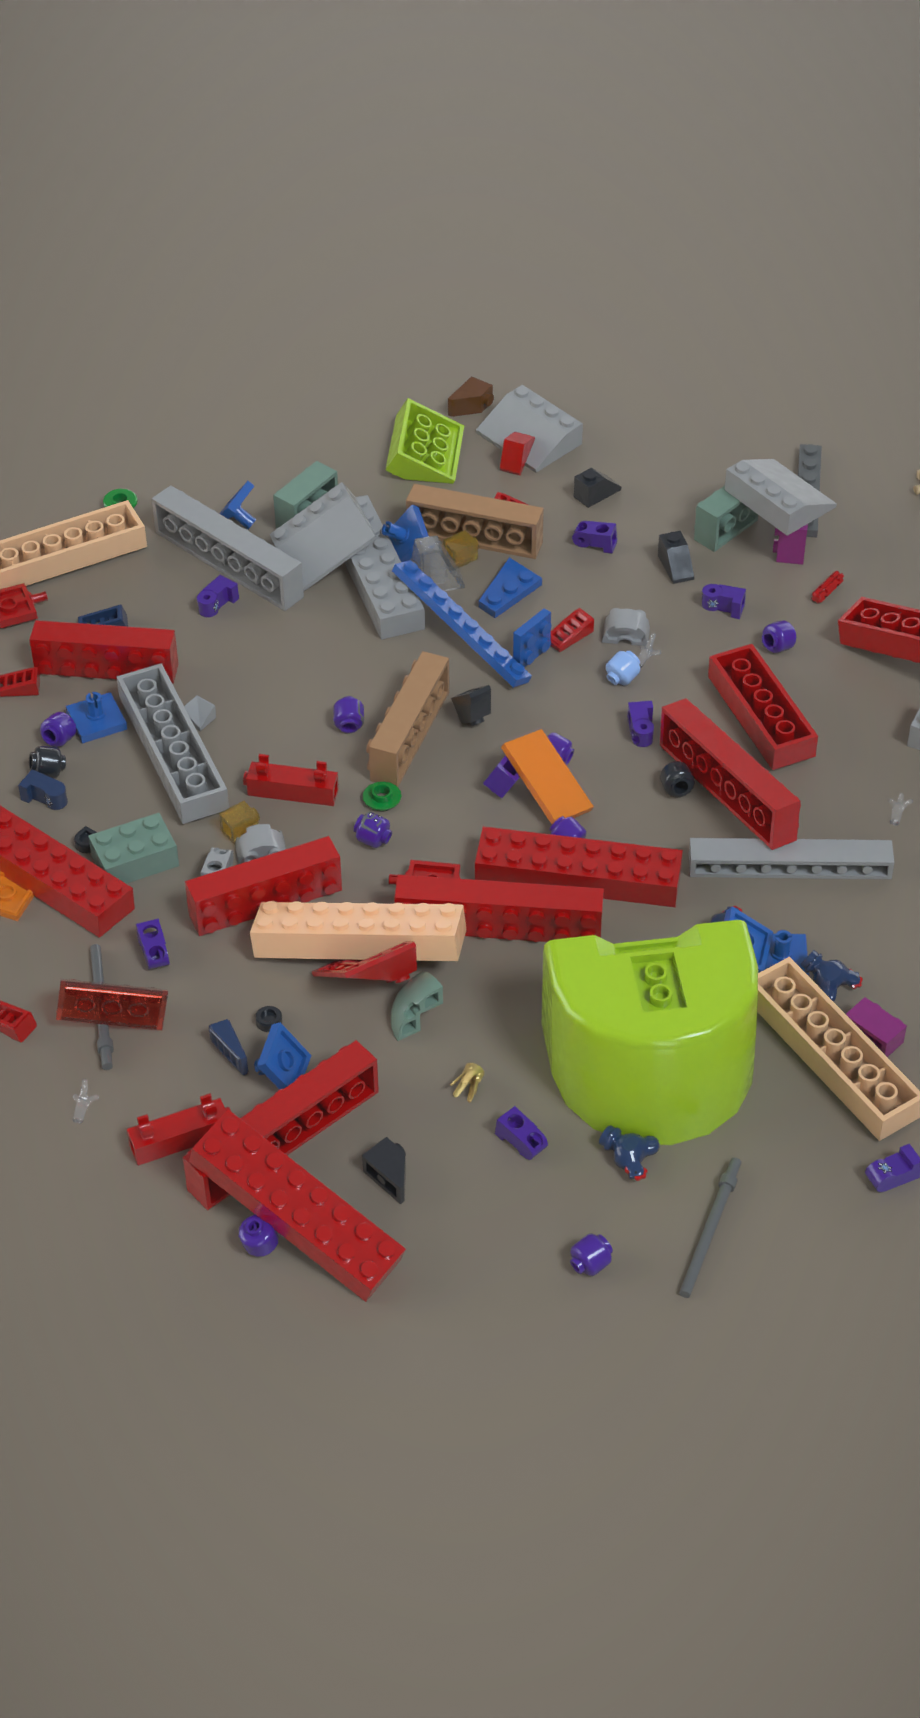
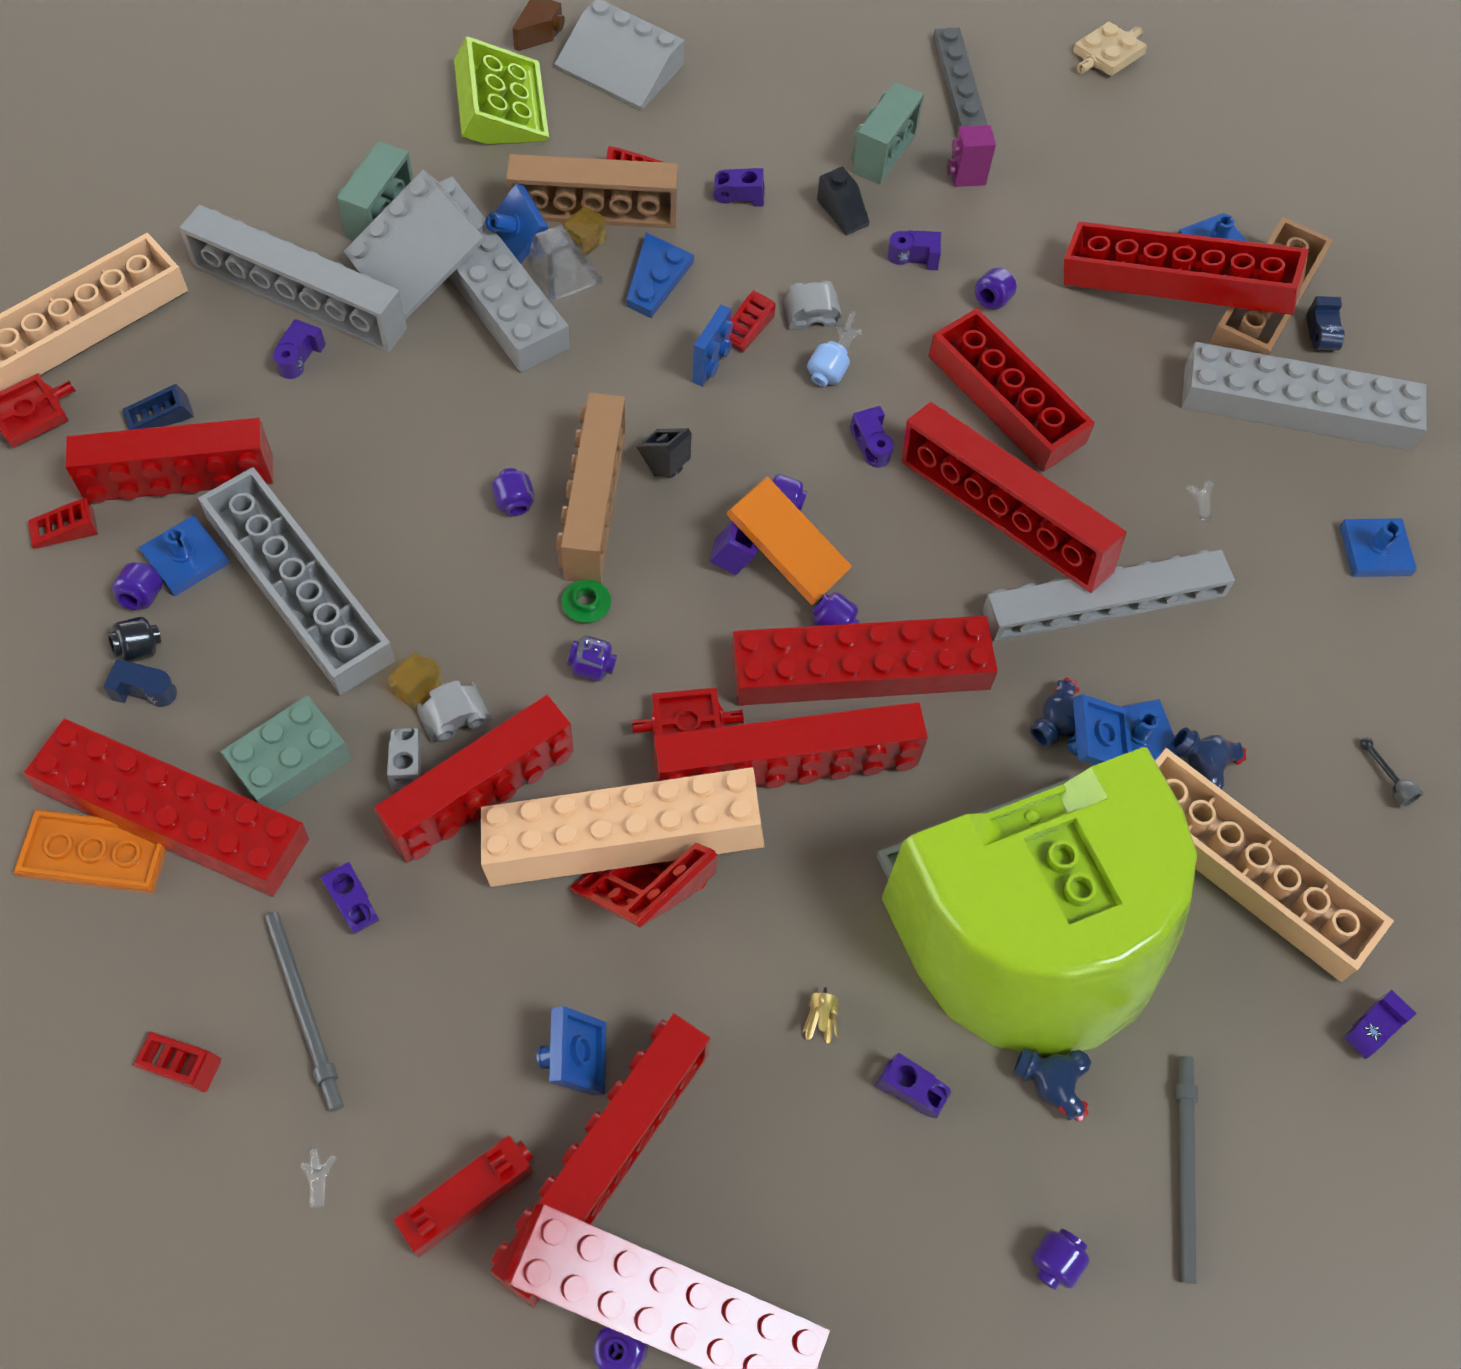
camera: 20 degrees left, 15 degrees up
(82, 840) = (213, 743): black tile -> none
(111, 1004) = (318, 1012): clear red slope -> none
(120, 495) = (133, 222): green piece -> none
(200, 712) = (319, 524): light grey slope -> none
(227, 1042) = (489, 1030): dark blue slope -> none
(234, 509) = (286, 220): blue tile -> none
(267, 1016) = (534, 976): black tile -> none
(292, 782) = (467, 607): red brick -> none
(387, 1167) = (761, 1184): black slope -> none
(414, 998) = (720, 914): sand green brick -> none
(462, 623) = (618, 337): blue plate -> none
(515, 452) = (613, 89): red slope -> none
(593, 487) = (717, 122): black slope -> none
(677, 779) = (941, 509): black head -> none
(776, 494) = (948, 103): light grey slope -> none
(827, 587) = (1025, 211): red axle -> none
(878, 1025) = (1290, 816): magenta brick -> none

